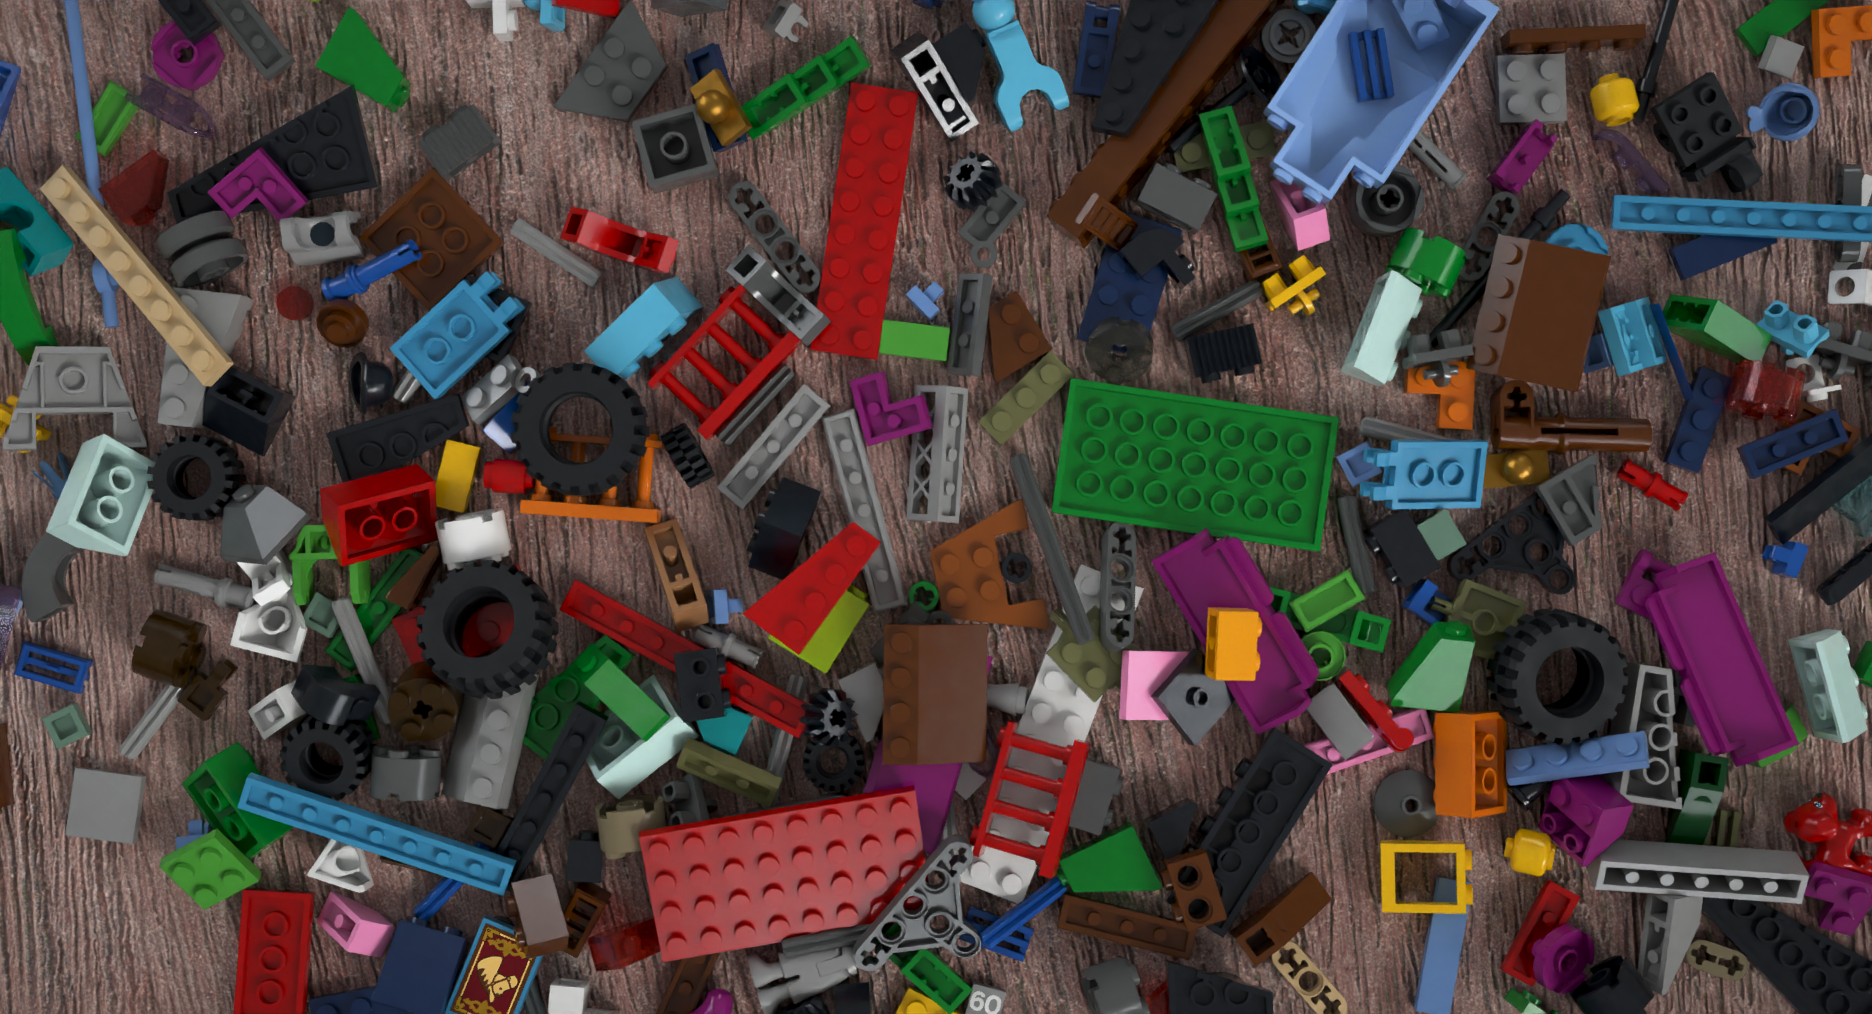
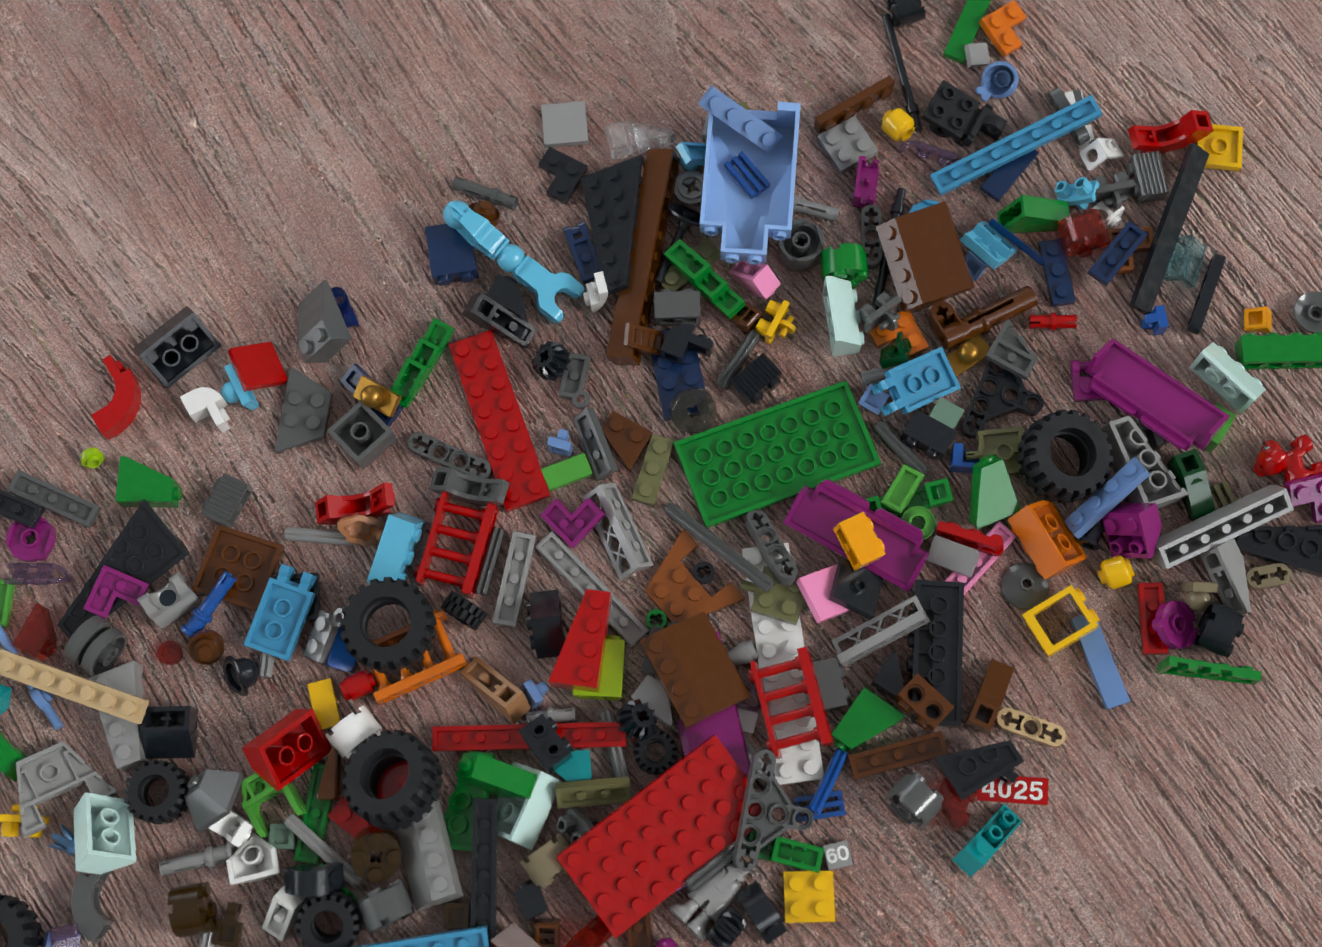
camera: 15 degrees left, 15 degrees down
(396, 437) = (274, 698): black wing -> none
(612, 277) = (361, 529): none -> nougat arm
(782, 20) = (388, 330): light grey tile -> none
(1081, 120) = (596, 292): none -> white slope
(1189, 779) = (883, 636): none -> light grey fence
(1423, 418) = (896, 354): none -> dark green bracket
(1616, 937) = (1198, 596): none -> dark tan tile

